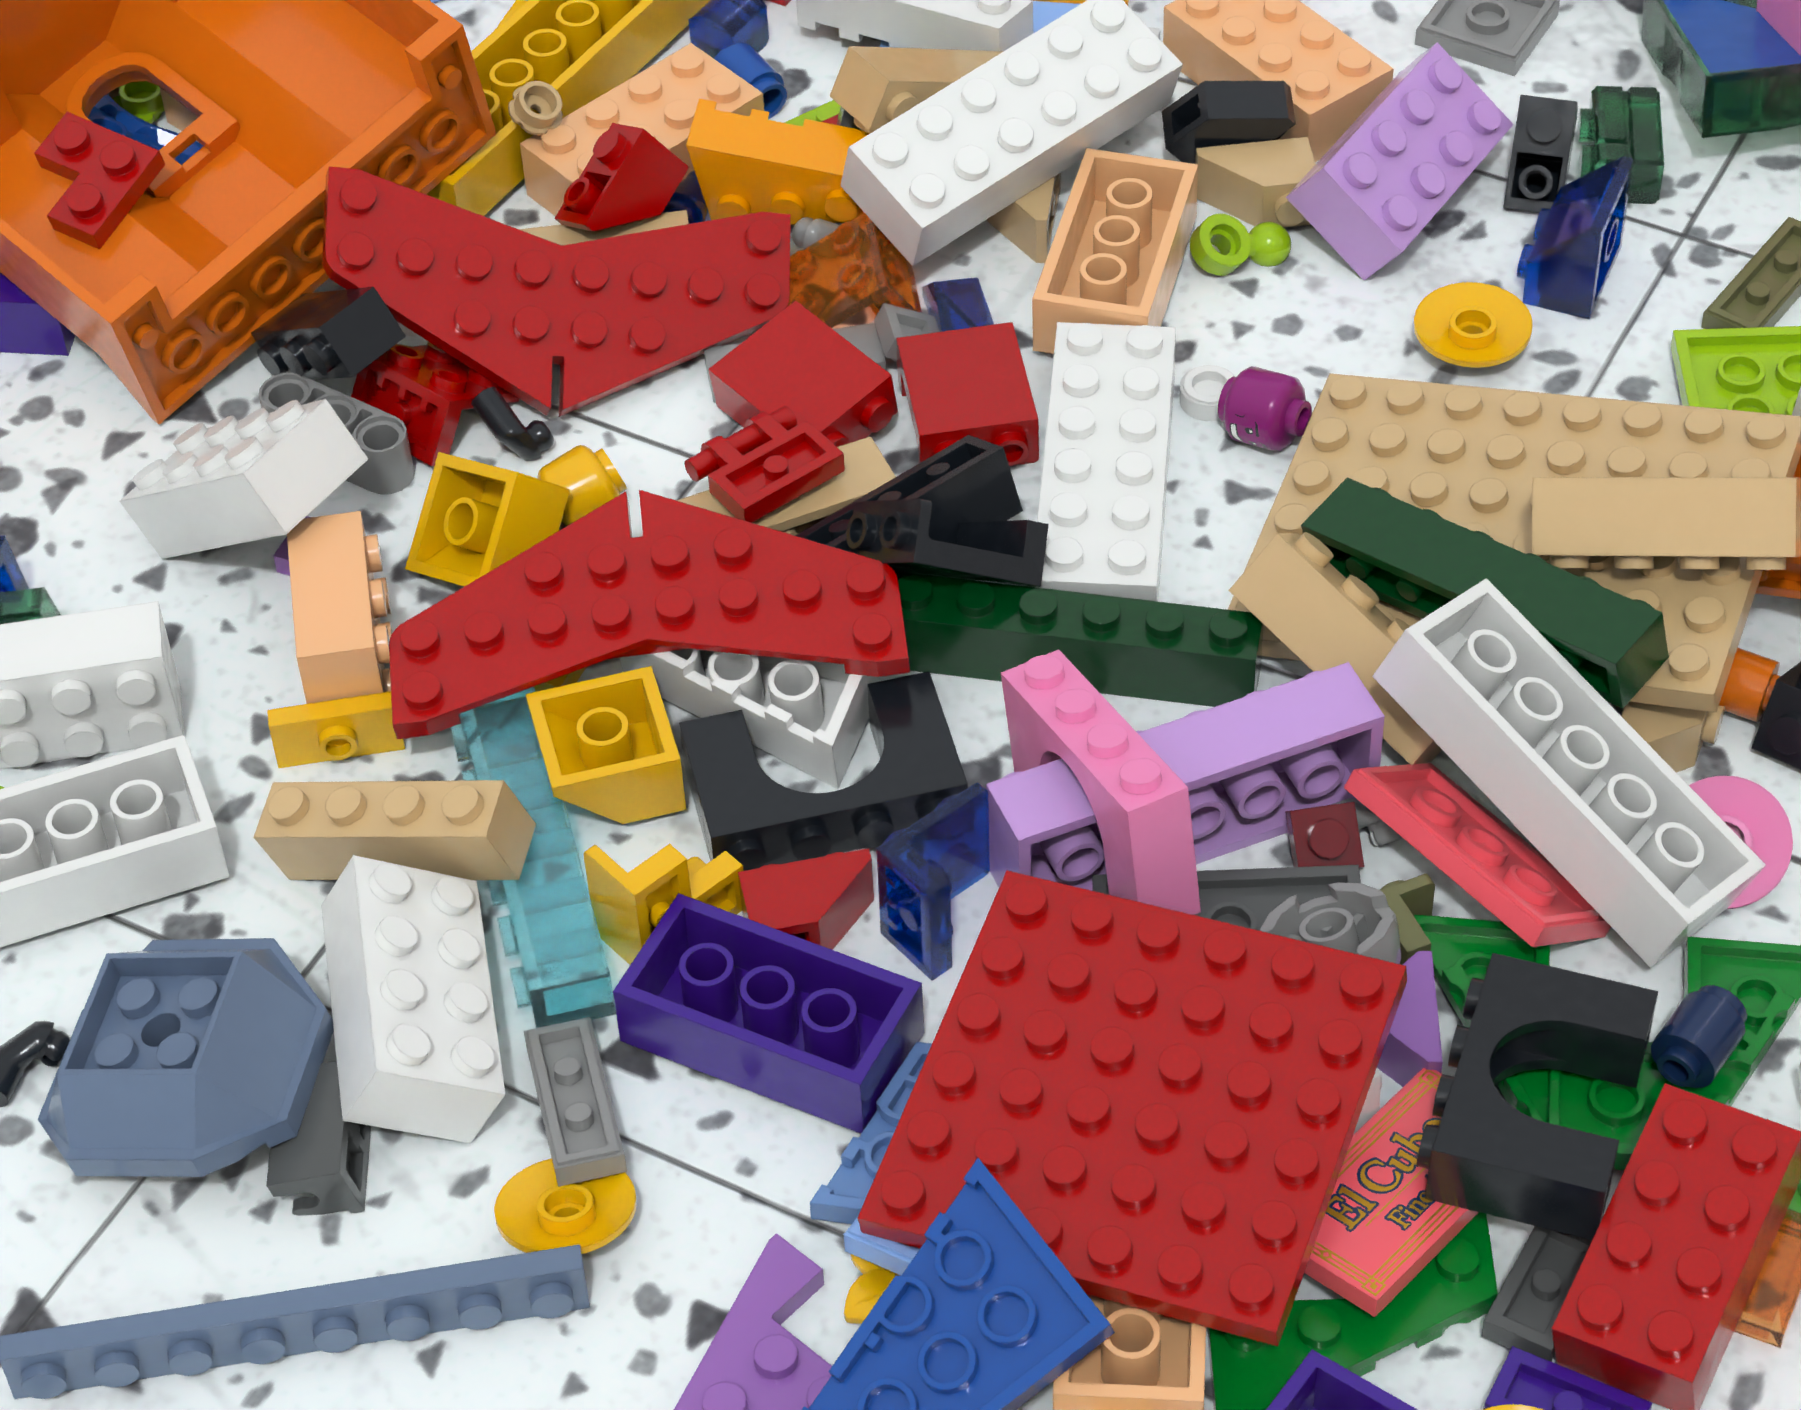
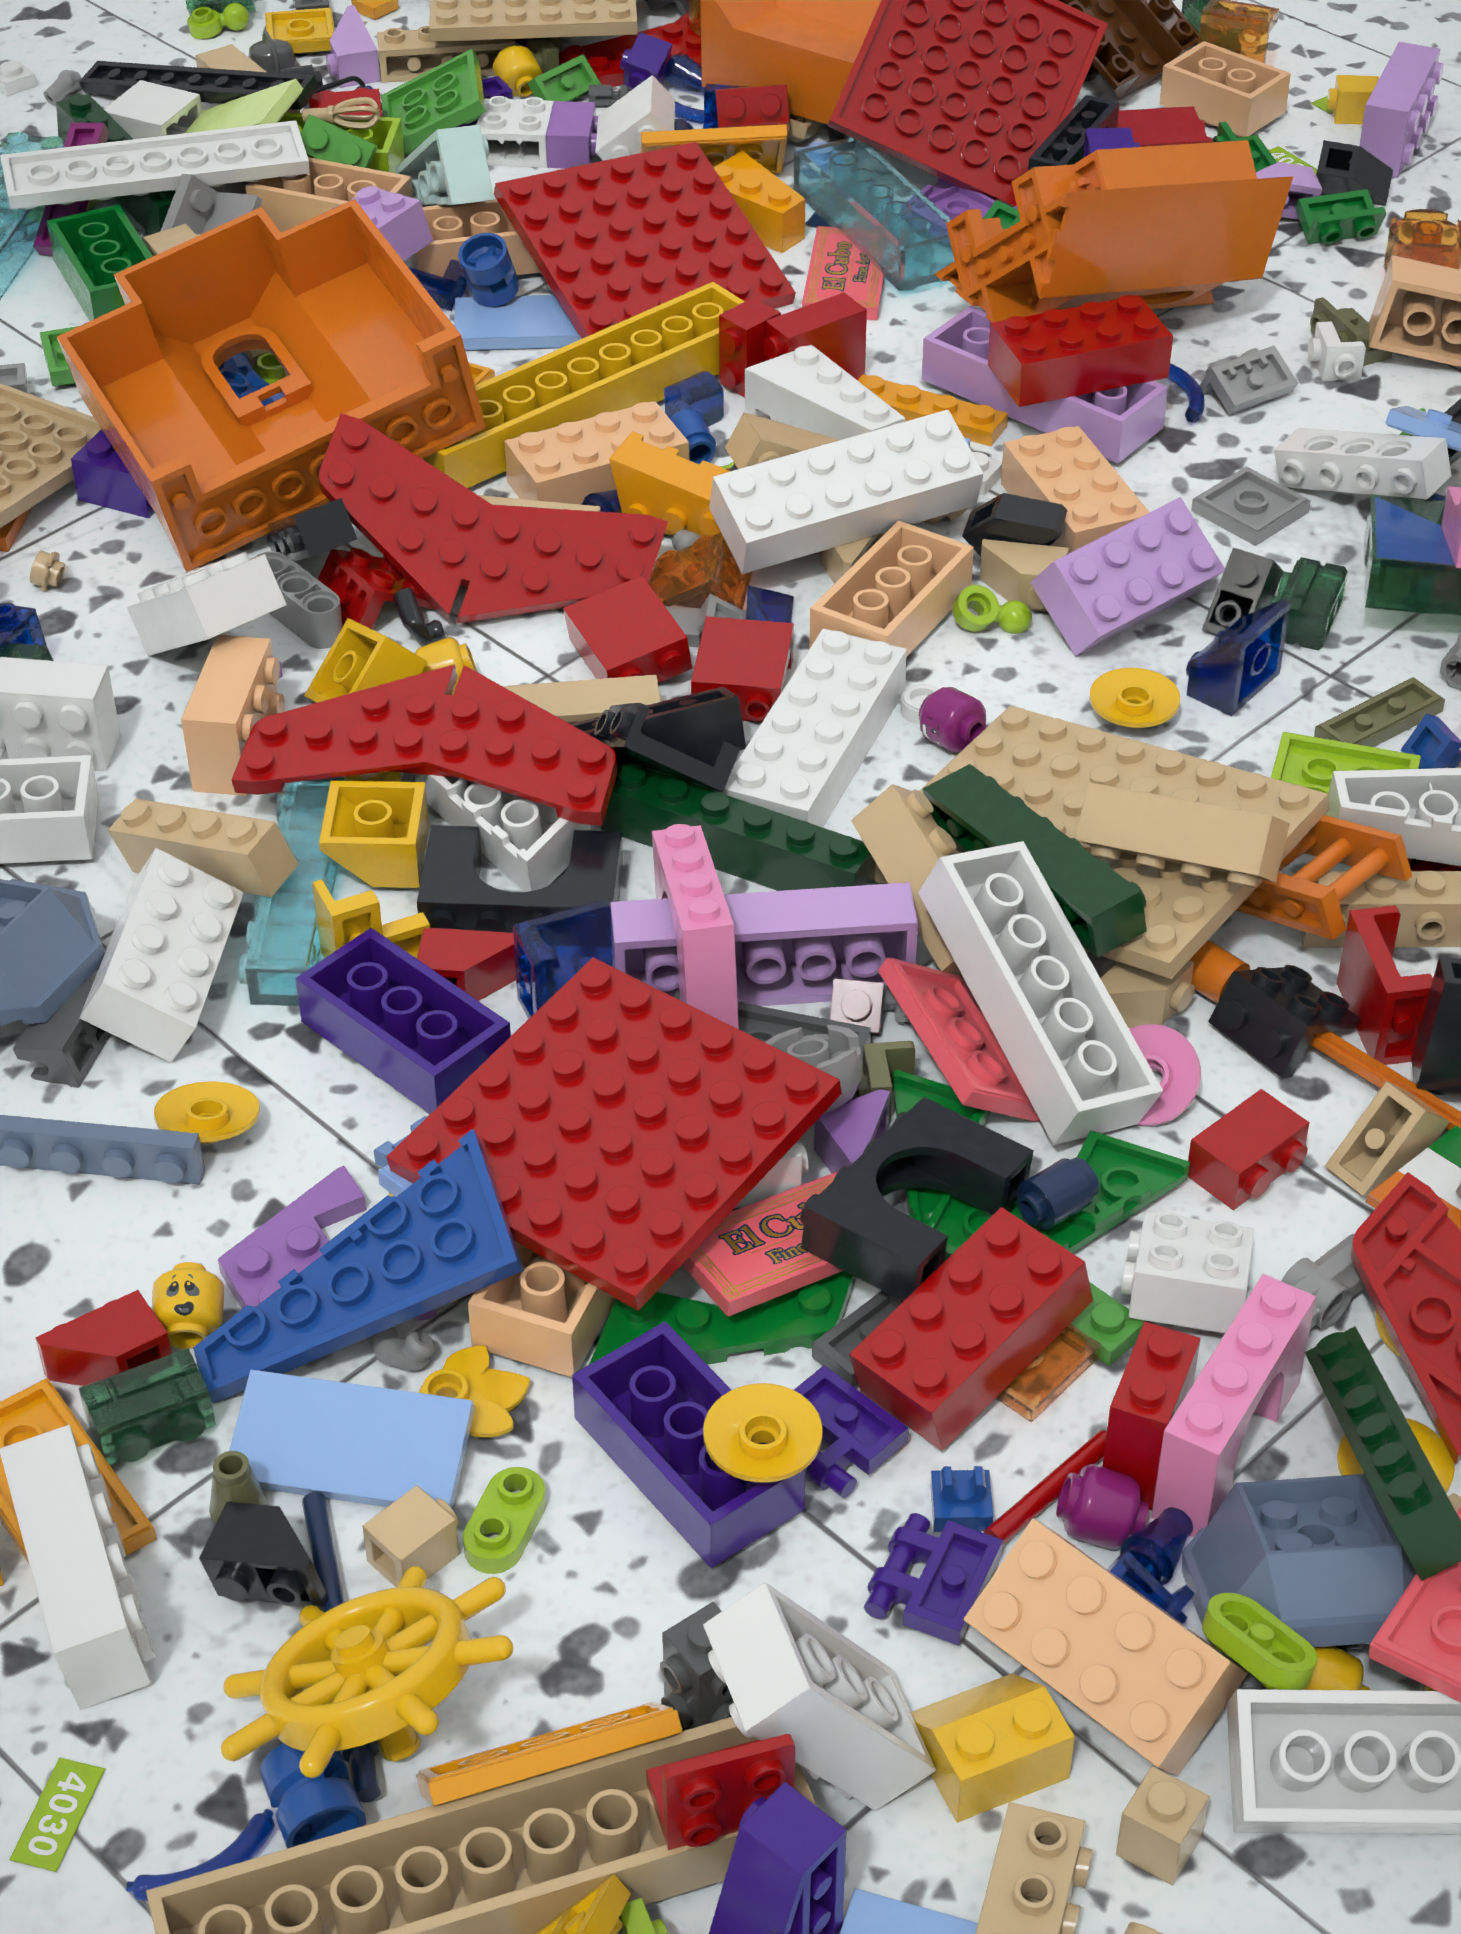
camera: 15 degrees right, 5 degrees down
(106, 176) = (202, 399): red plate -> none
(333, 730) = (199, 782): yellow plate -> none
(541, 98) = (525, 410): tan plate -> none
(575, 1102) = (247, 1049): light grey tile -> none
(623, 181) = (561, 475): red slope -> none
(765, 463) = (569, 673): red plate -> none

